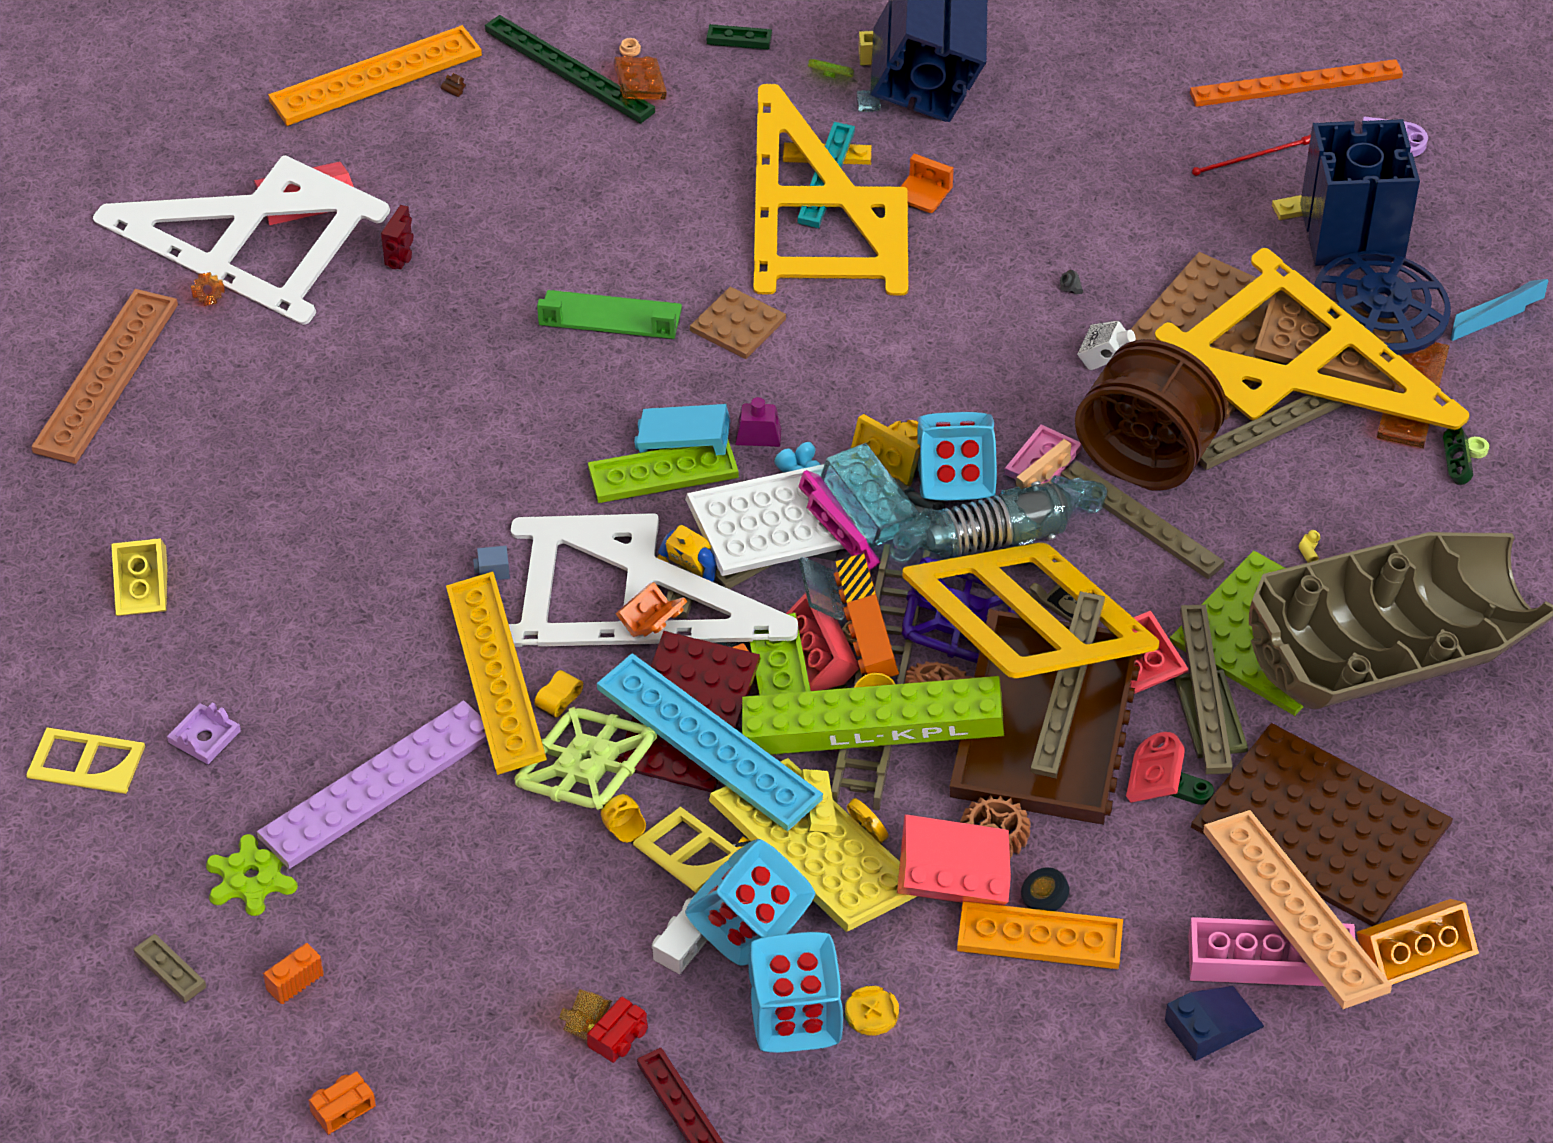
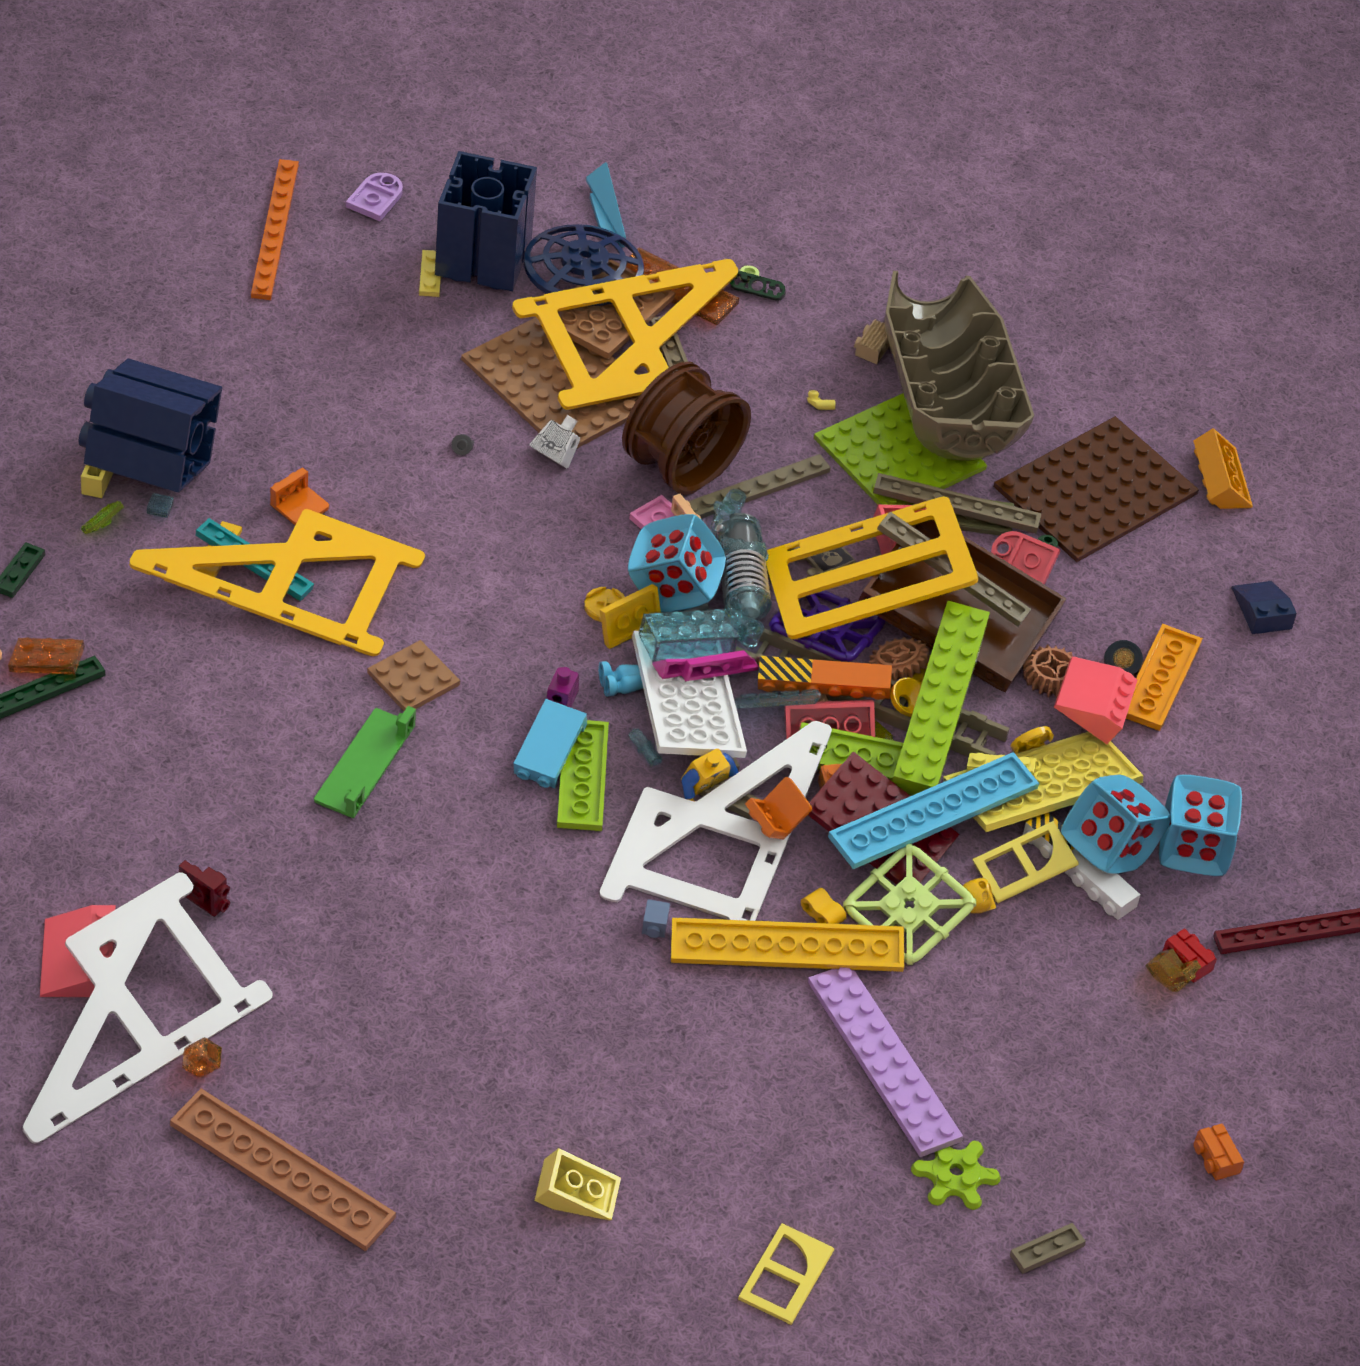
camera: 80 degrees left, 0 degrees up
(204, 719) = (786, 1160): lavender piece -> none
(293, 973) = (1080, 1157): orange brick -> none
(1246, 953) = (1217, 550): bright pink brick -> none
(1297, 910) = (1196, 516): light nougat plate -> none
(1304, 140) = (350, 228): red piece -> none

